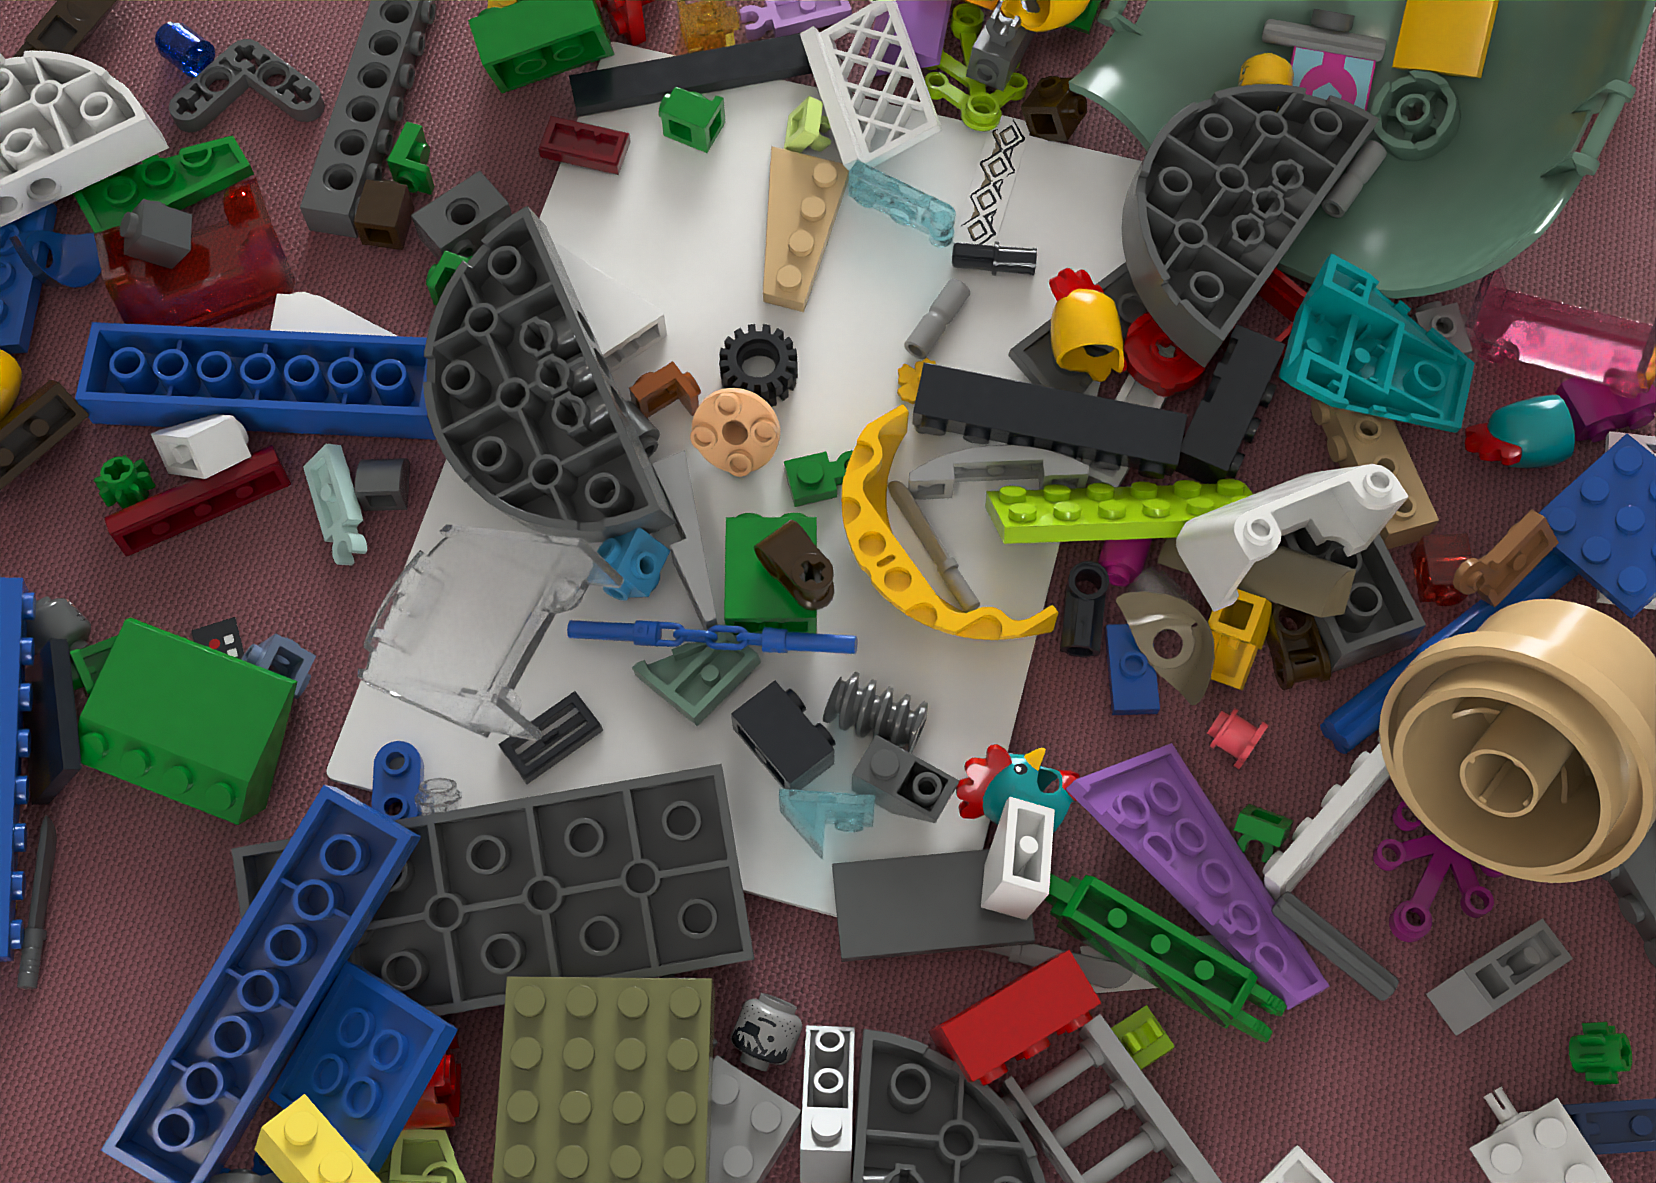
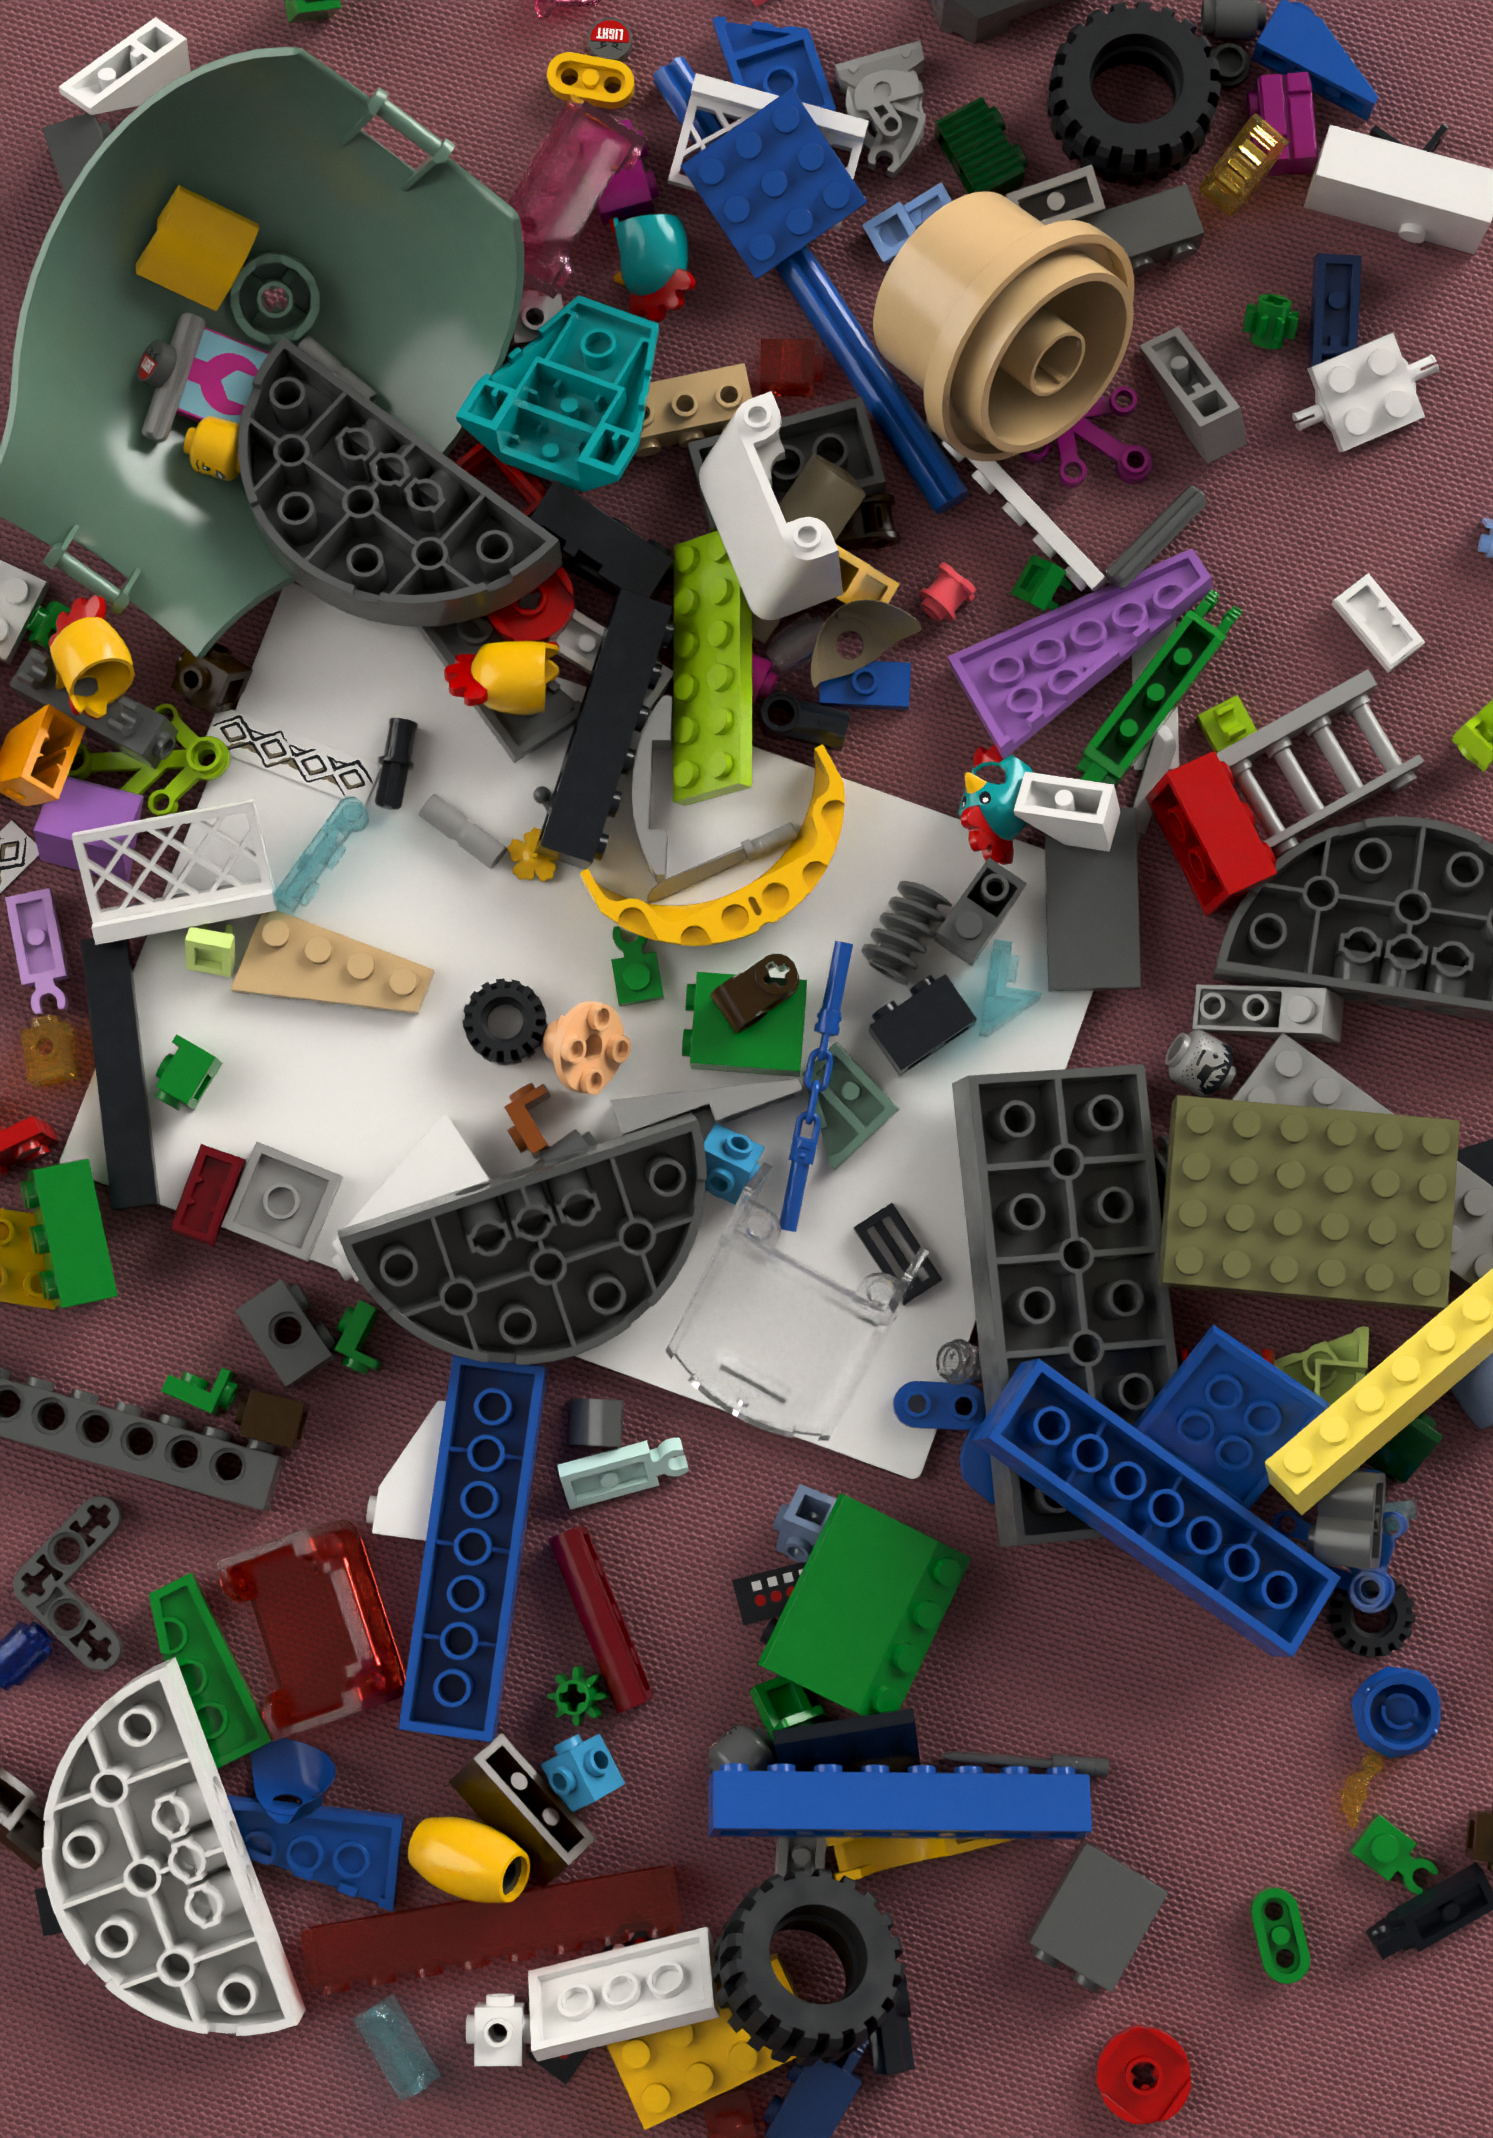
camera: 80 degrees left, 15 degrees up
(50, 489) = (582, 1771): none -> dark azure brick
(156, 233) = (280, 1669): dark grey brick -> none
(202, 446) = (551, 1609): white slope -> none
(584, 204) = (282, 1201): none -> light grey tile
(1508, 561) = (808, 314): medium nougat hinge -> none

